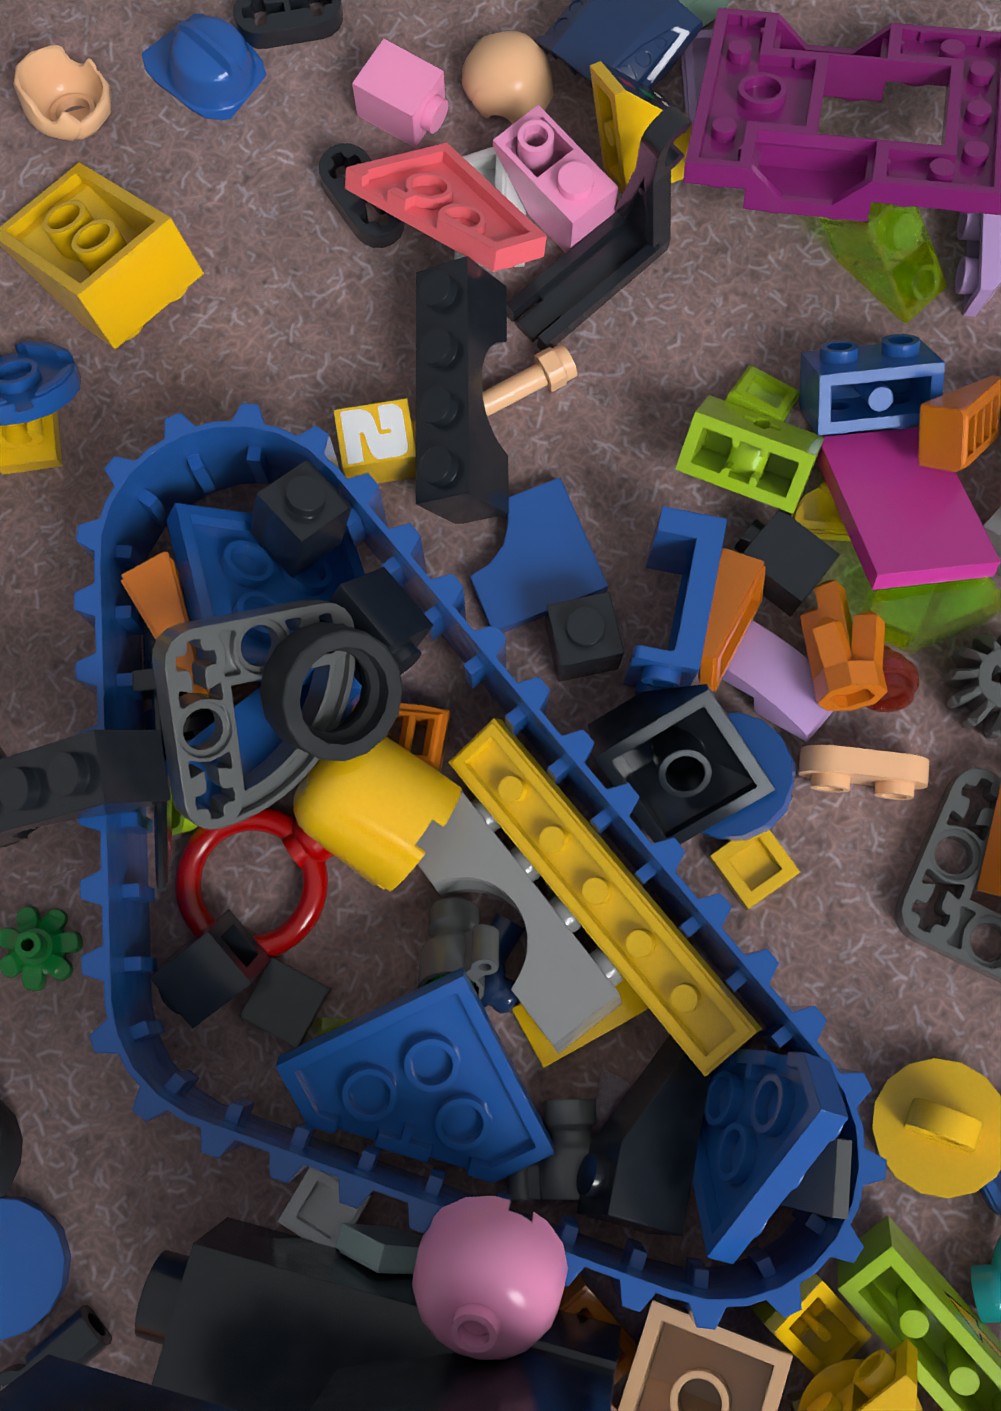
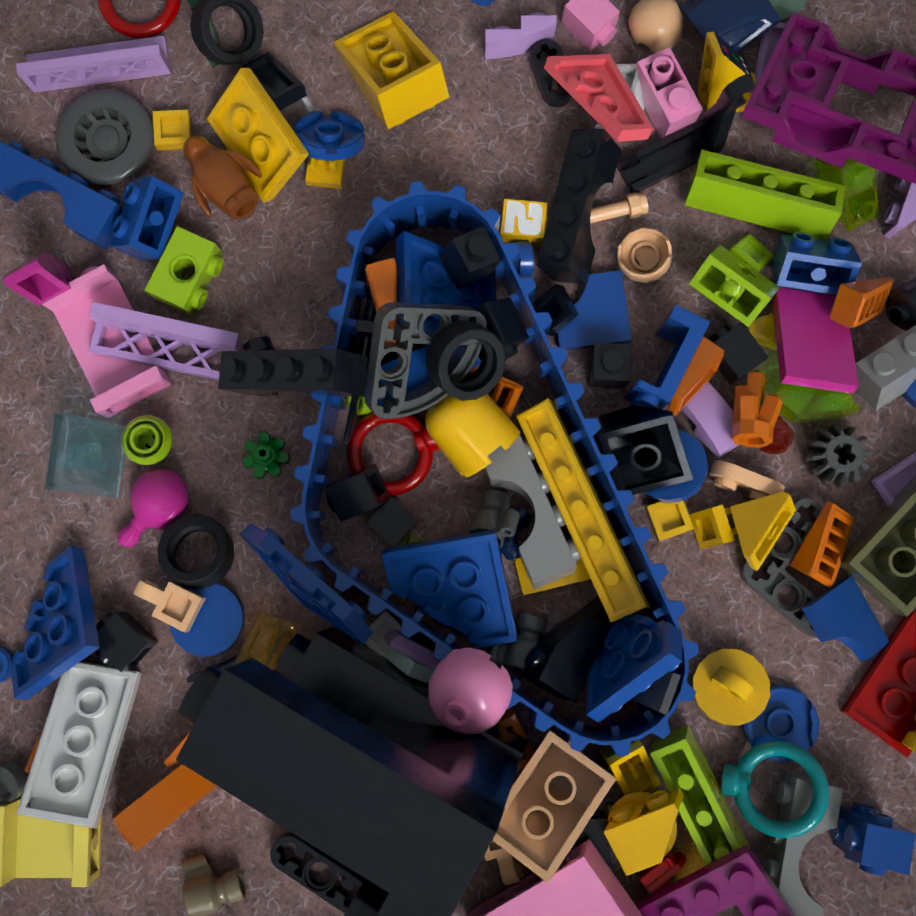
camera: 20 degrees right, 5 degrees up
(107, 1299) = (267, 640): none -> clear yellow slope
(155, 1157) = (307, 584): none -> blue plate
(283, 162) = (508, 42): none -> lavender slope
(371, 1219) = (412, 648): none -> lavender tile
(395, 498) = (526, 259): none -> blue tile
(472, 564) = (558, 305): none -> black tile
(599, 433) = (650, 249): none -> light nougat hair
(756, 298) = (764, 195): none -> lime brick
(831, 860) = (712, 527): none -> yellow tile
(909, 835) = (761, 524): none -> yellow slope

